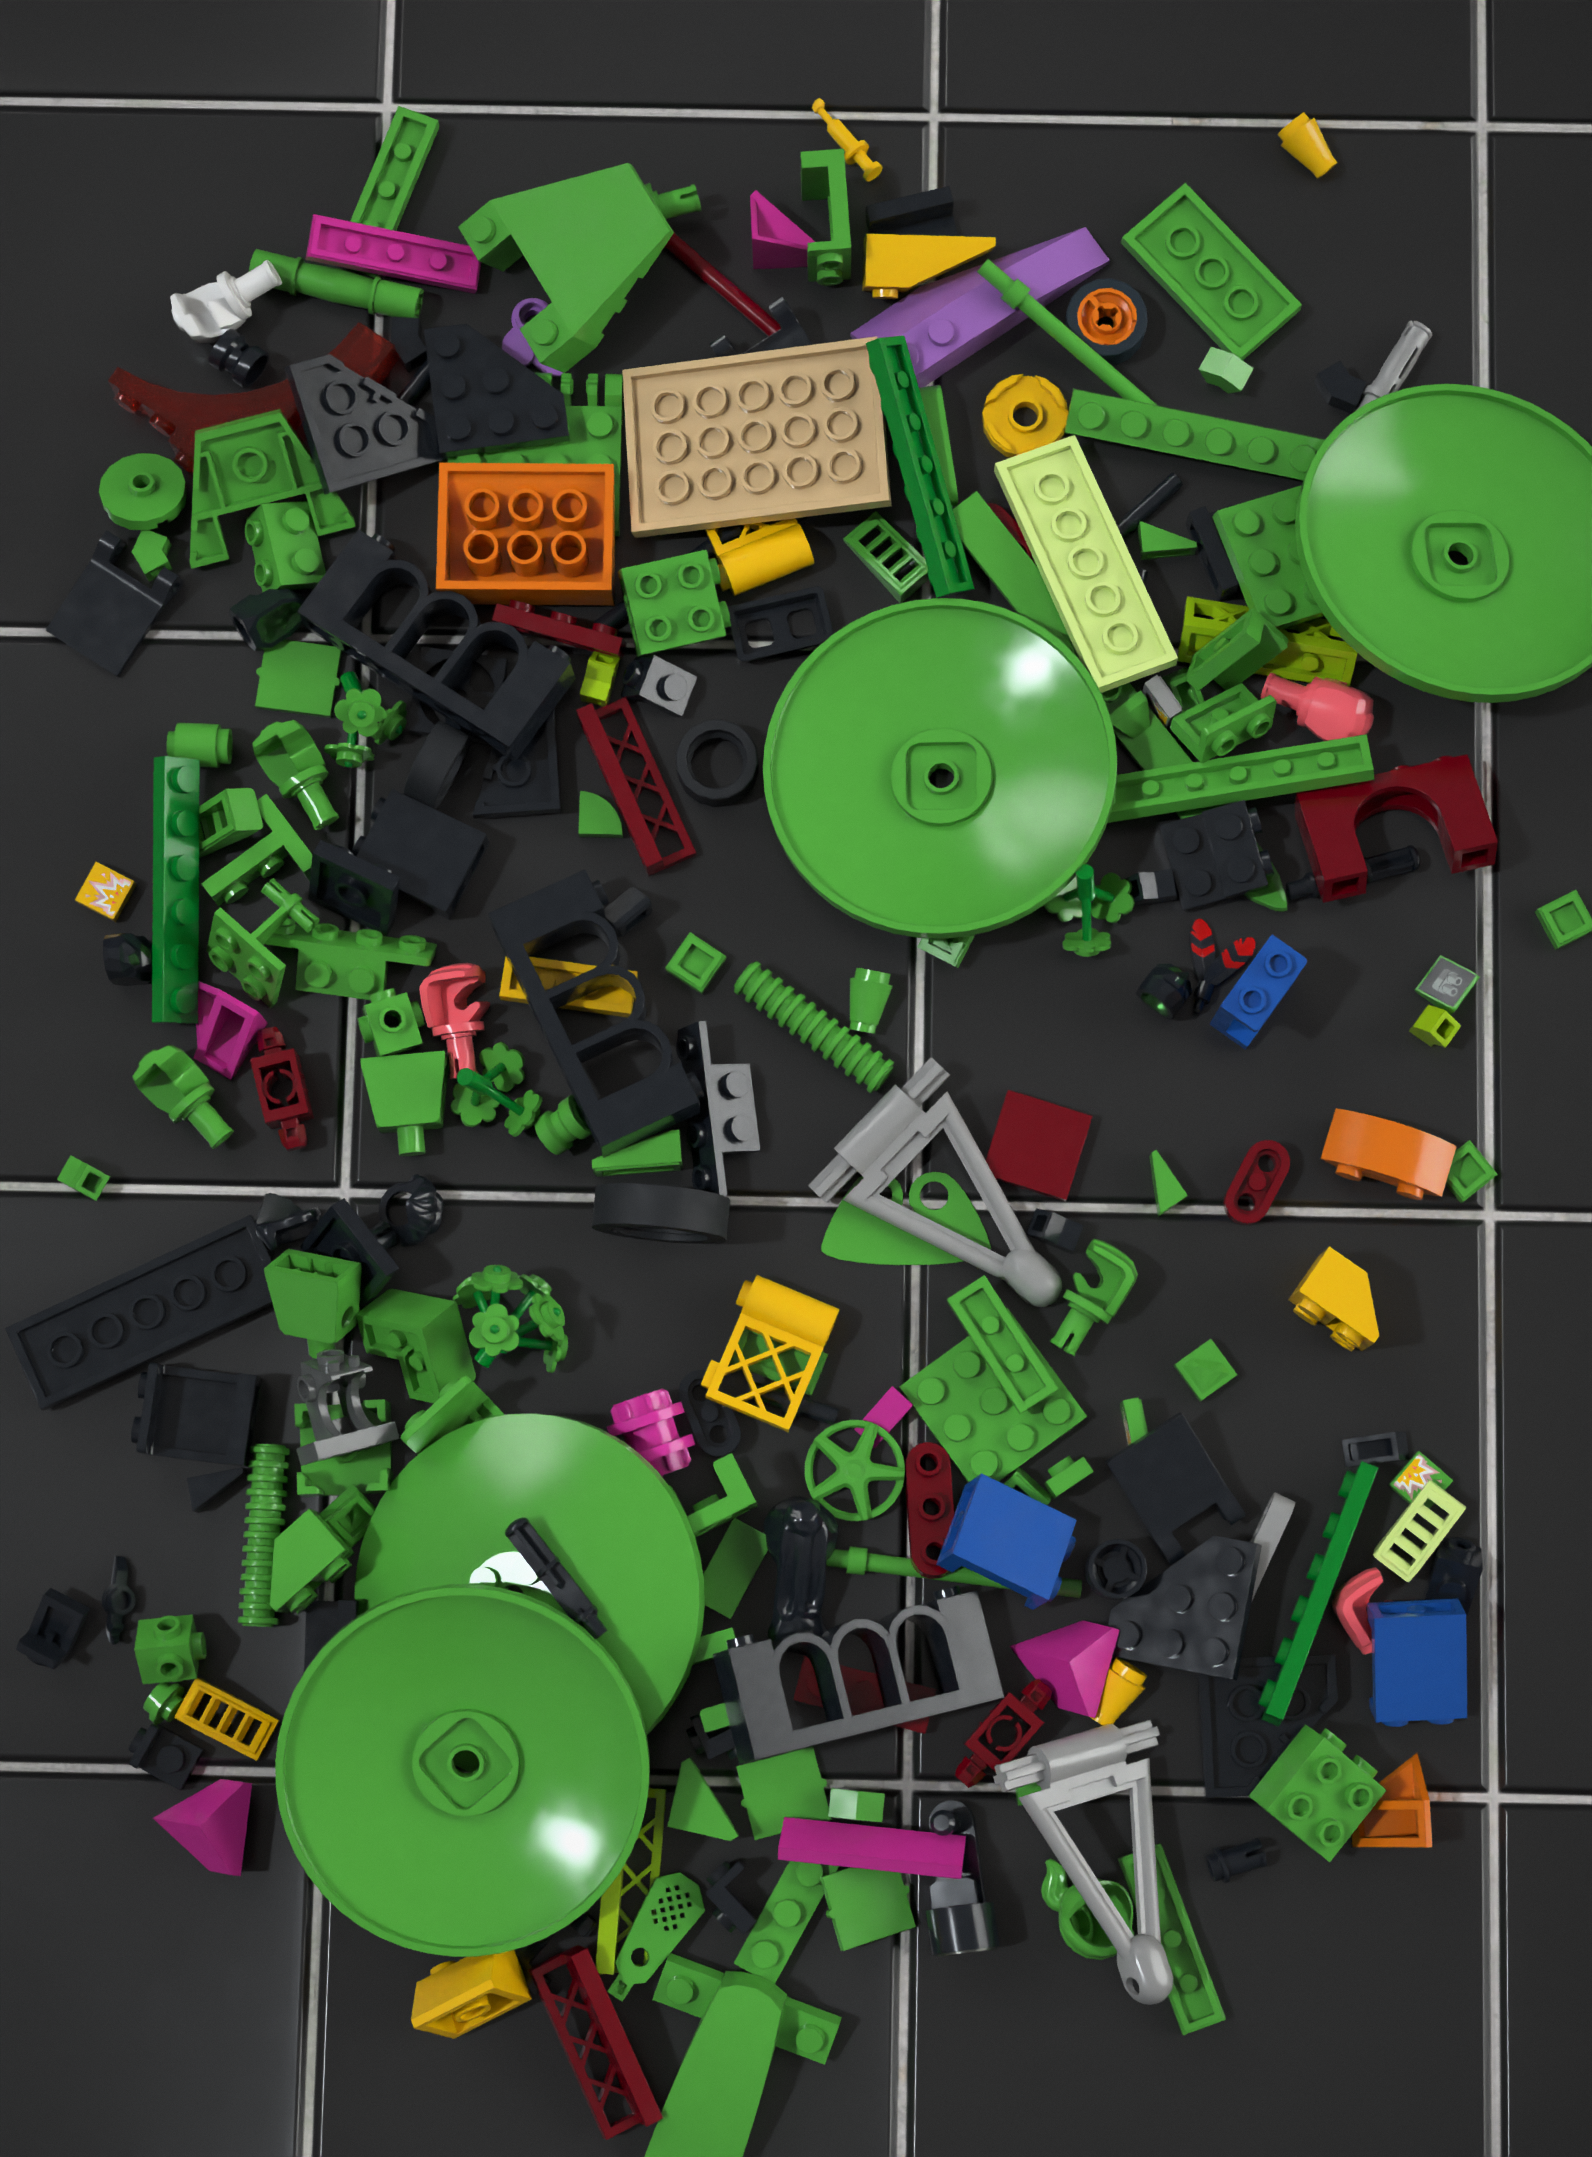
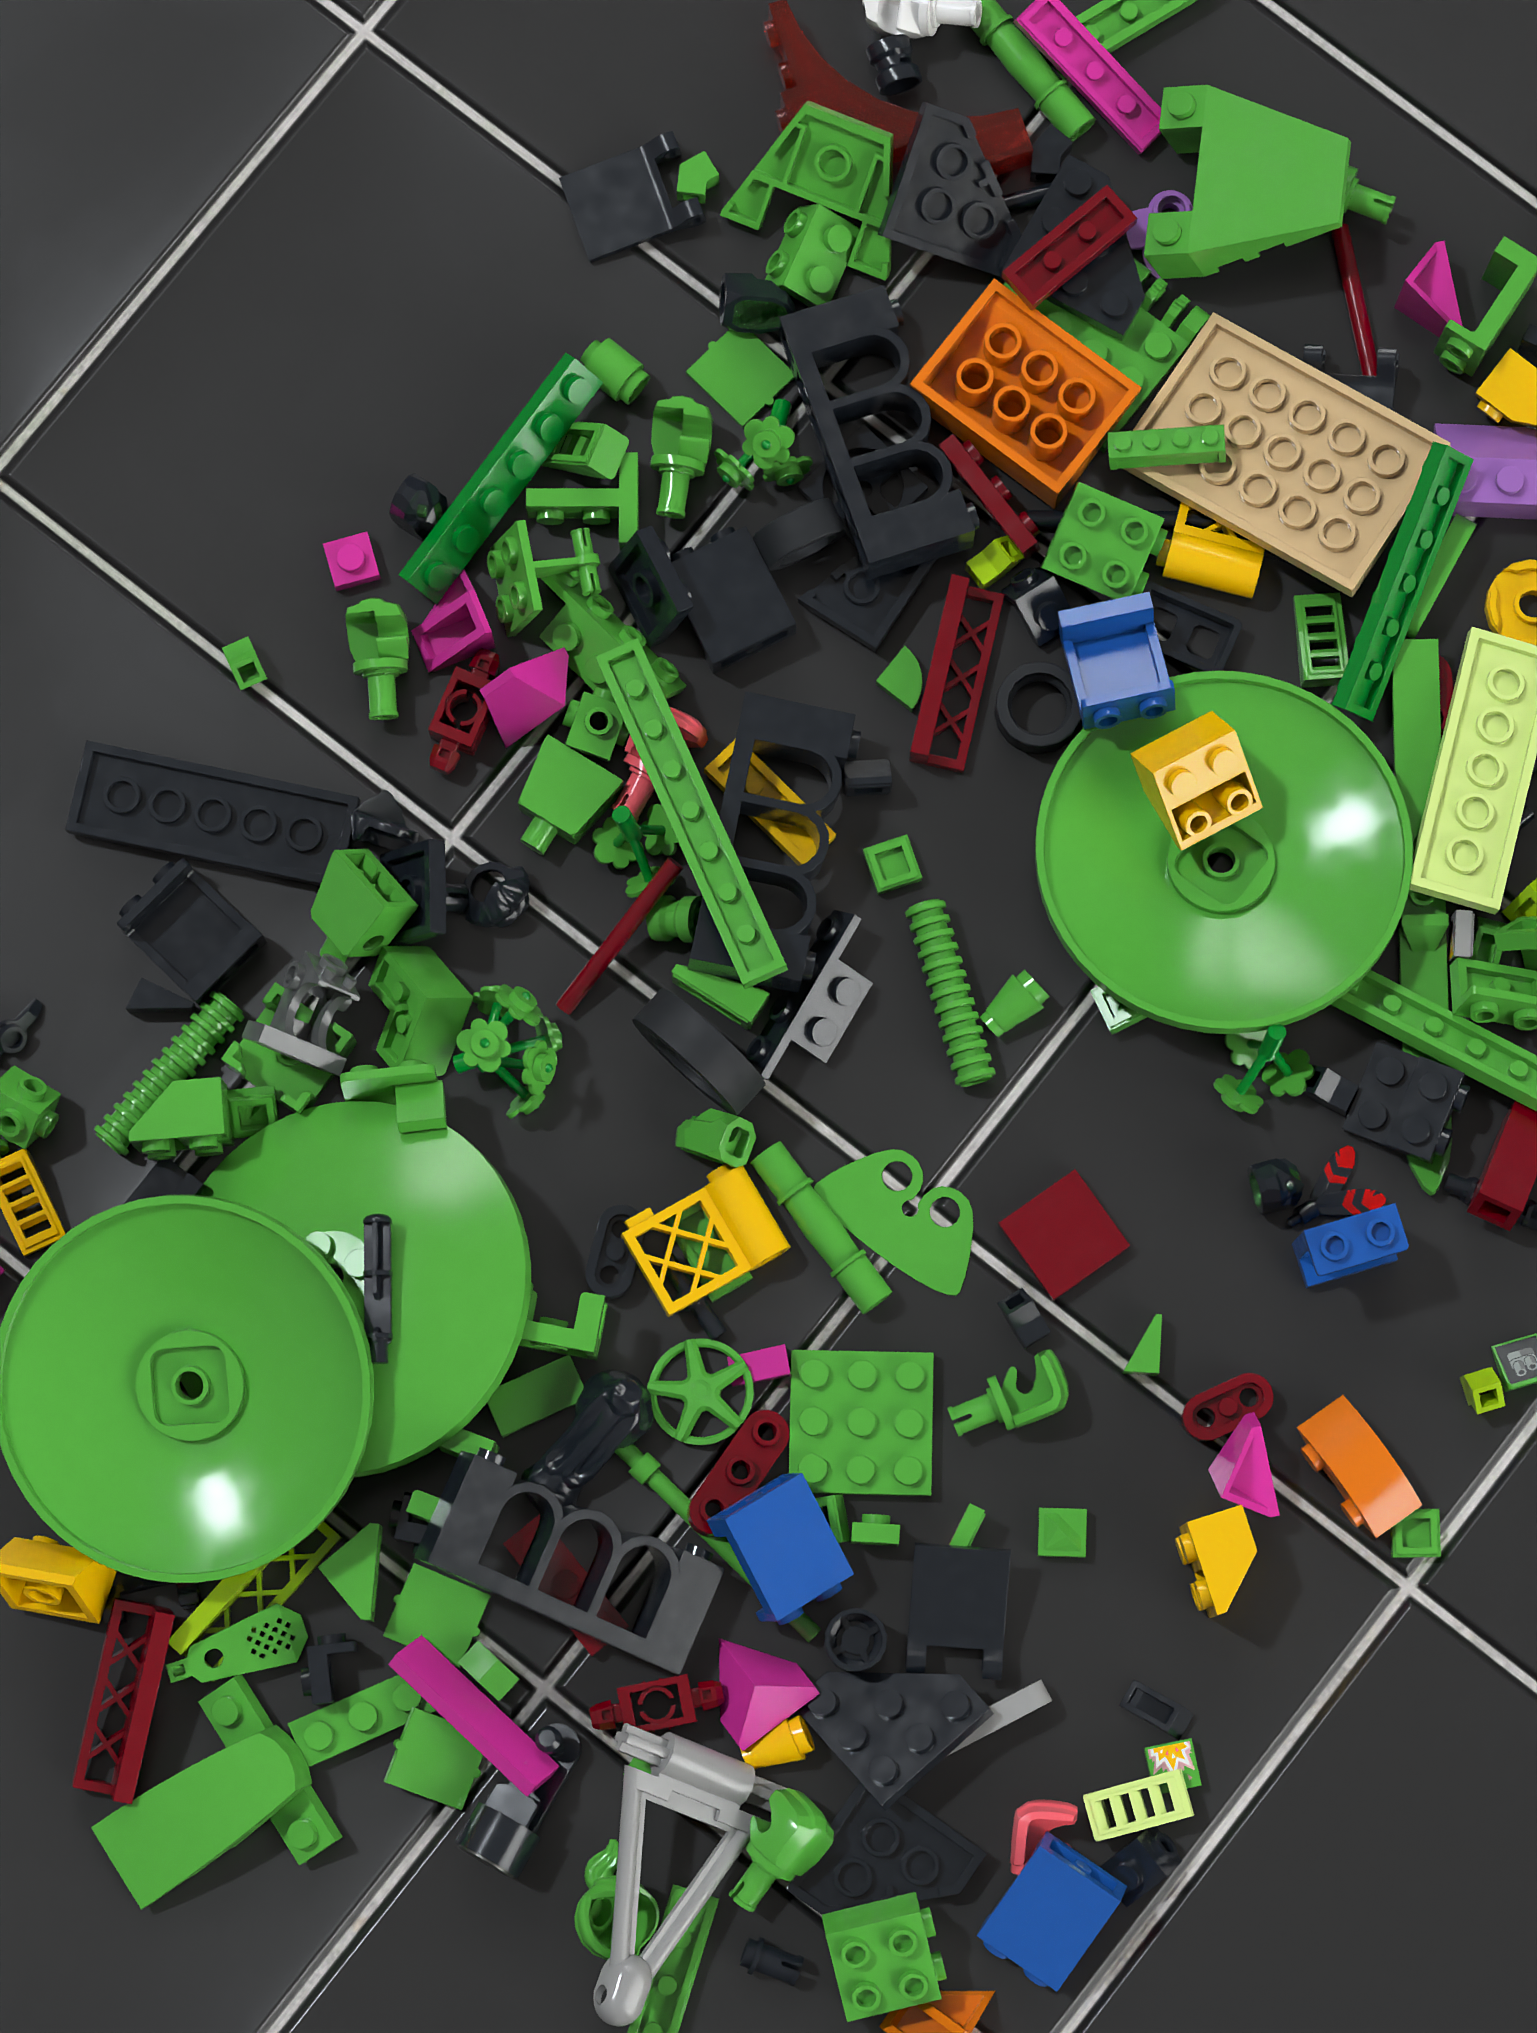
camera: 35 degrees right, 0 degrees up
(105, 891) = (443, 436): tile -> none
(107, 1038) = (351, 561): none -> dark pink plate
(143, 491) = (723, 136): bright green plate -> none
(322, 1040) = (527, 694): none -> dark pink slope
(479, 397) = (1069, 247): none -> dark red plate
(480, 1414) = (420, 1106): none -> bright green tile
(519, 1036) = (691, 814): none -> bright green plate
(531, 1171) = (619, 936): none -> dark red bar
(651, 1430) = (554, 1229): dark pink piece -> none
(666, 495) = (1166, 447): none -> bright green piece
(722, 1268) = (717, 1137): none -> bright green rock
(751, 684) = (1116, 661): none -> panel
(851, 1277) = (821, 1227): none -> bright green piece
(881, 726) = (1197, 779): none -> yellow slope
(890, 1140) = (939, 1137): light grey piece -> none
(1002, 1344) = (903, 1379): bright green plate -> none
(1181, 1768) = (782, 1847): none -> bright green piece
(1306, 1219) = (1243, 1469): none -> dark pink slope
(1310, 1609) = (993, 1799): green plate -> none

